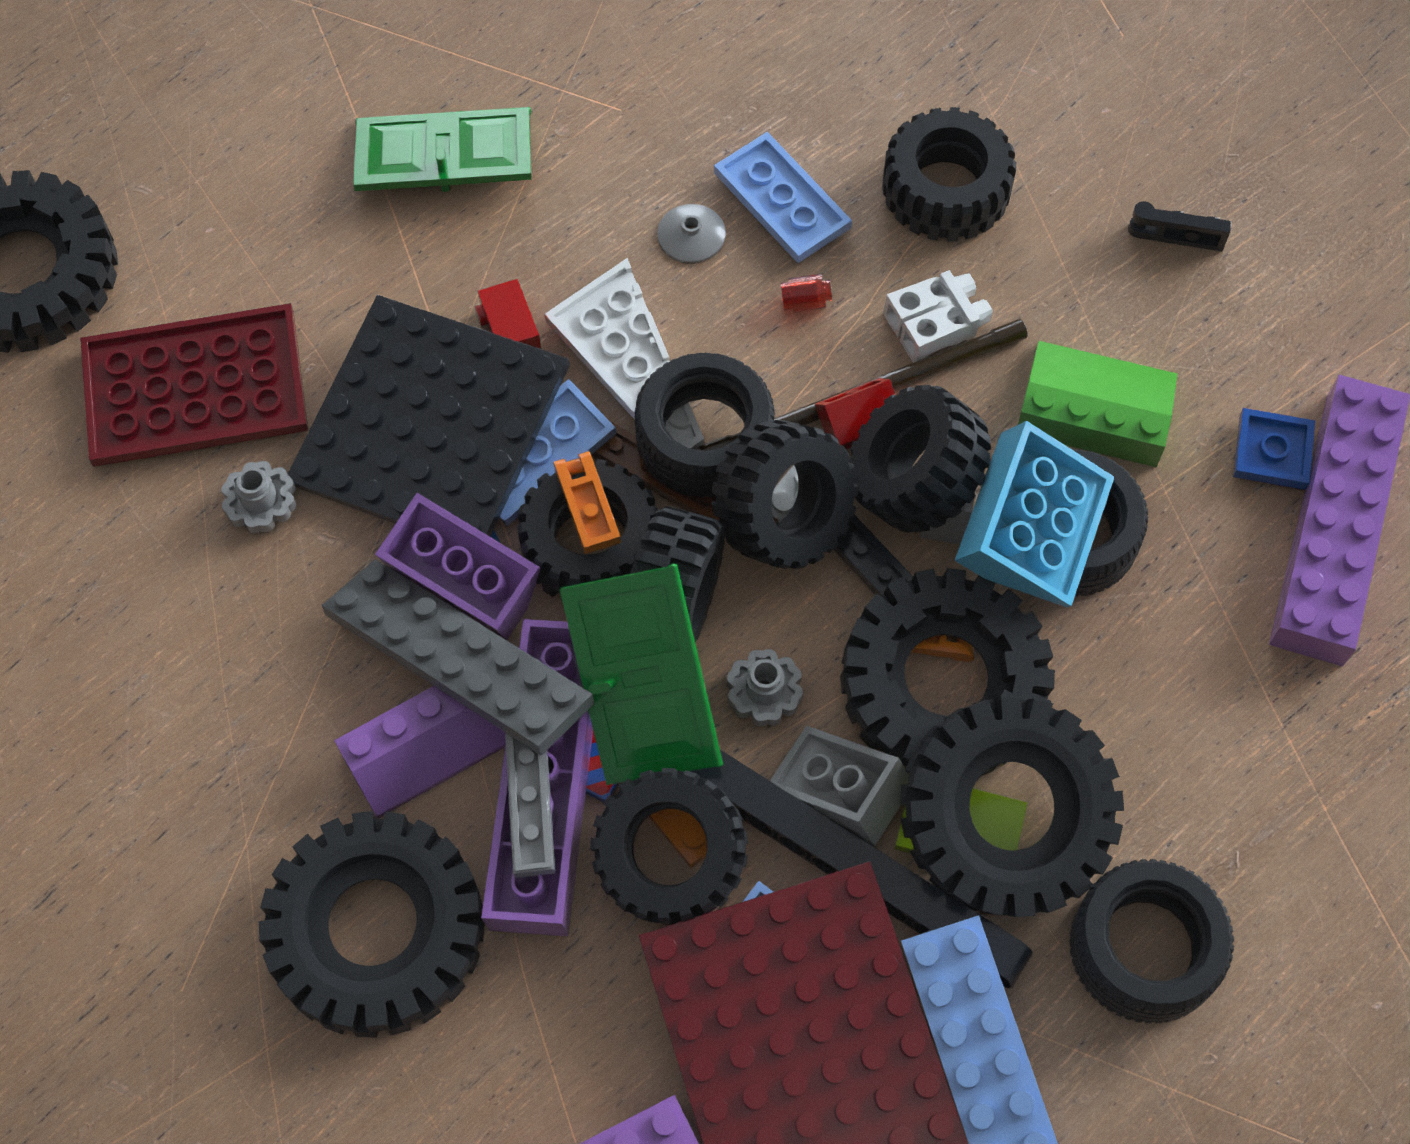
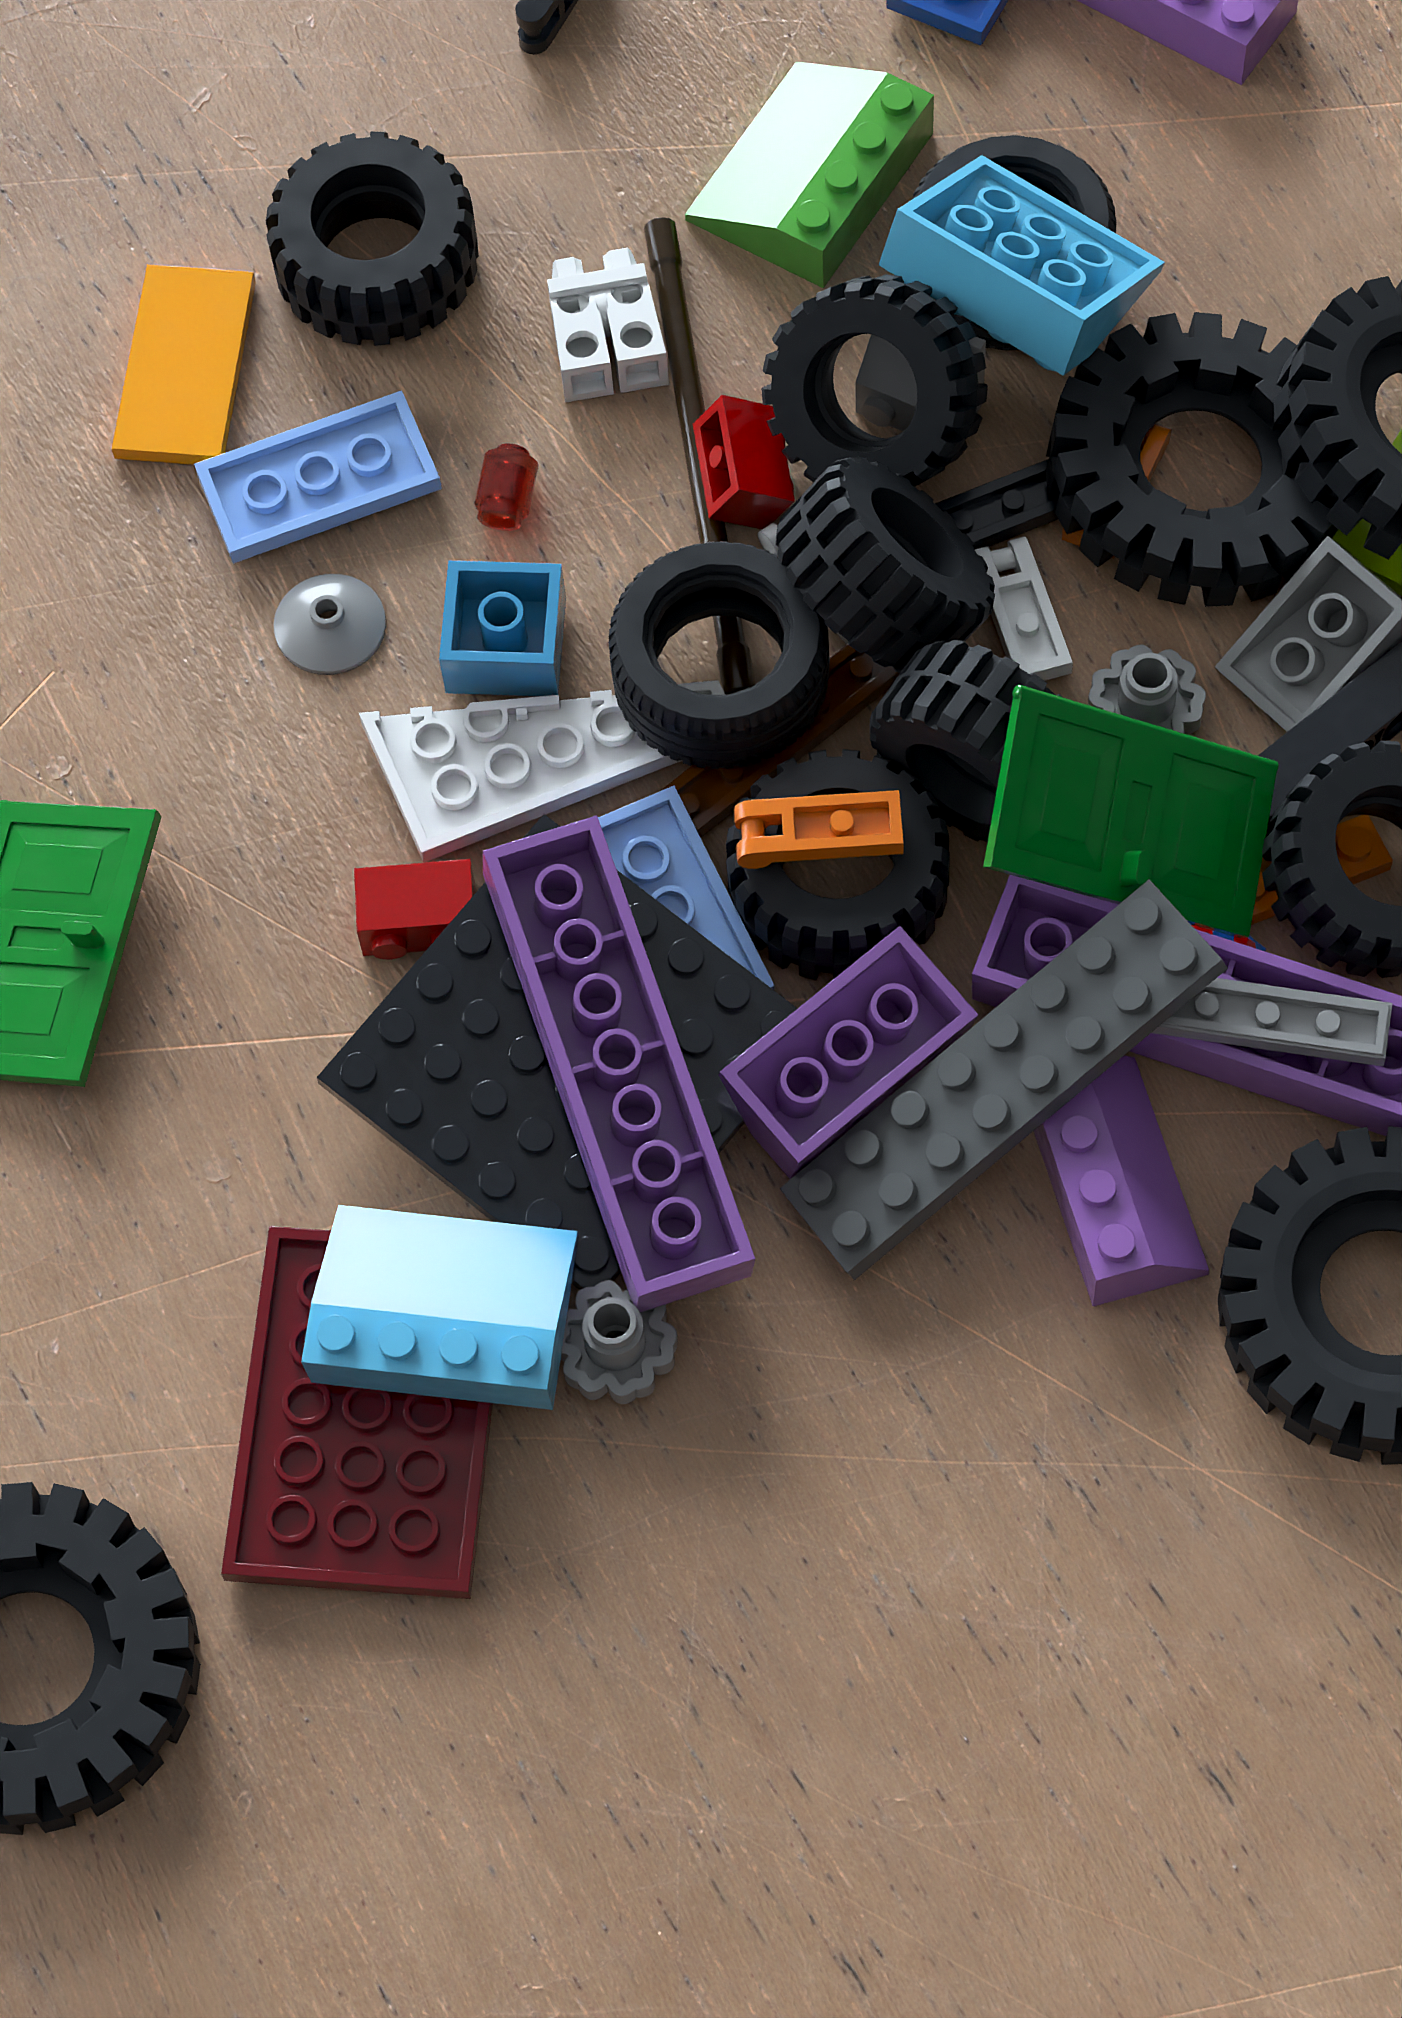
camera: 70 degrees left, 0 degrees up
(248, 395) = (441, 1307): none -> slope
(405, 434) = (617, 1064): none -> medium lavender brick
(702, 312) = (502, 628): none -> dark azure brick
(808, 599) = (1025, 613): none -> white plate
(838, 112) = (183, 364): none -> light orange tile

